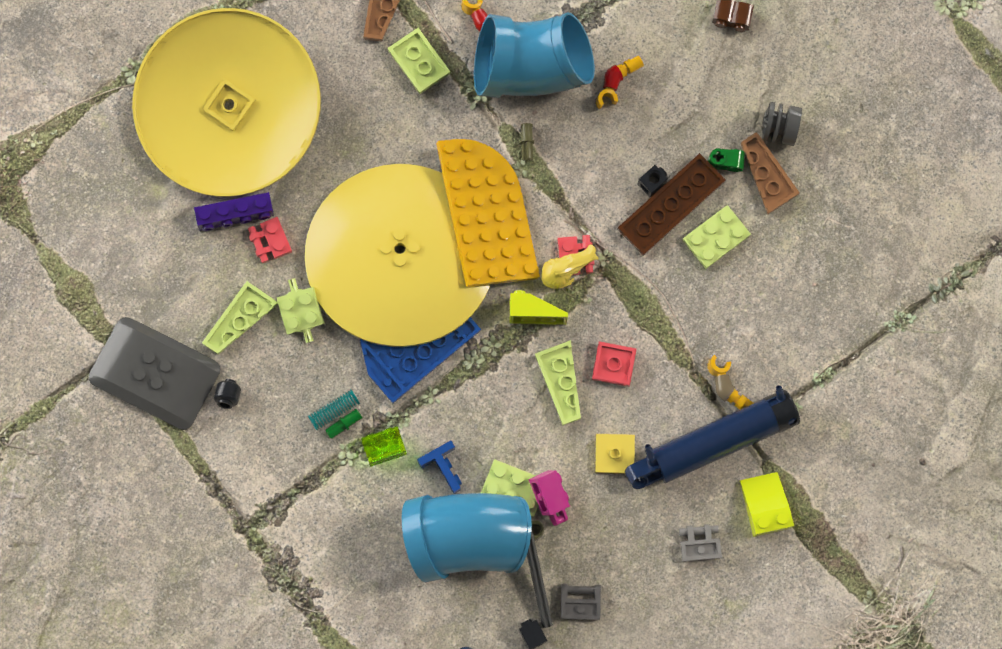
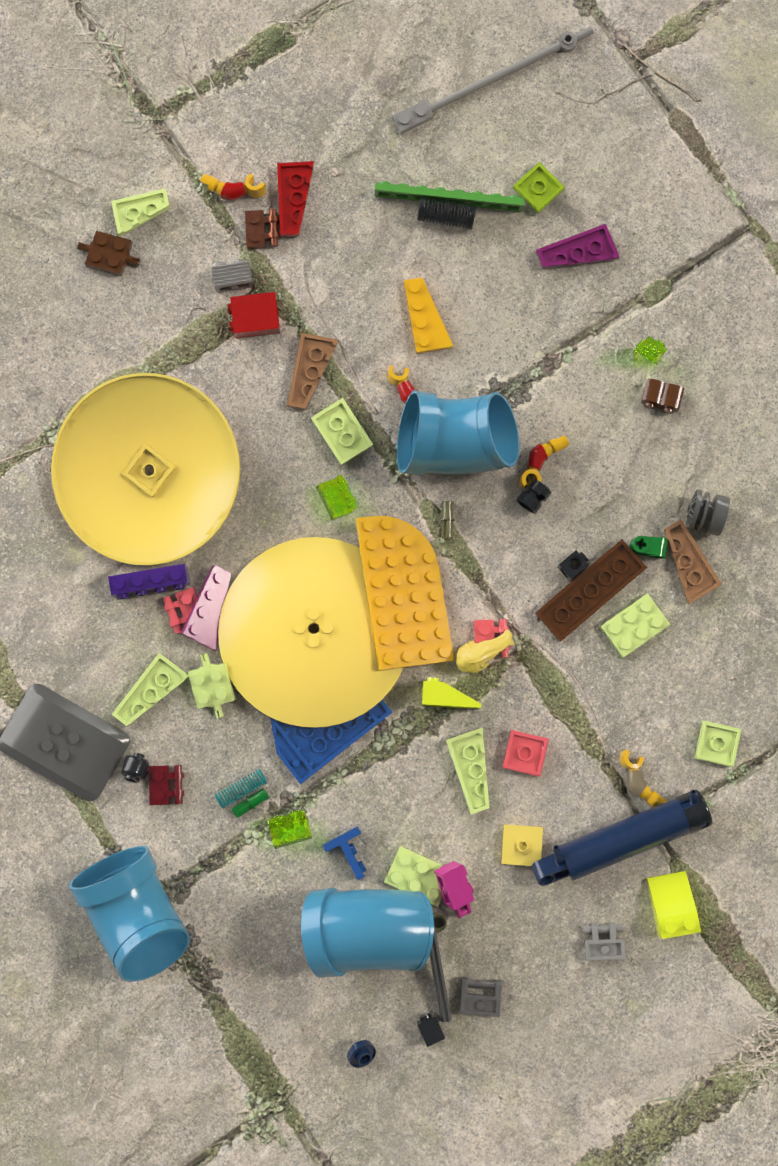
camera: 10 degrees right, 5 degrees up
(234, 531) = (131, 913): none -> dark azure cylinder
(252, 410) = (160, 785): none -> dark red plate
(290, 244) = (204, 617): none -> wing
(417, 124) = (337, 497): none -> clear neon green bracket
(612, 113) = (533, 496): none -> black wheel
(803, 347) = (717, 743): none -> yellowish green plate

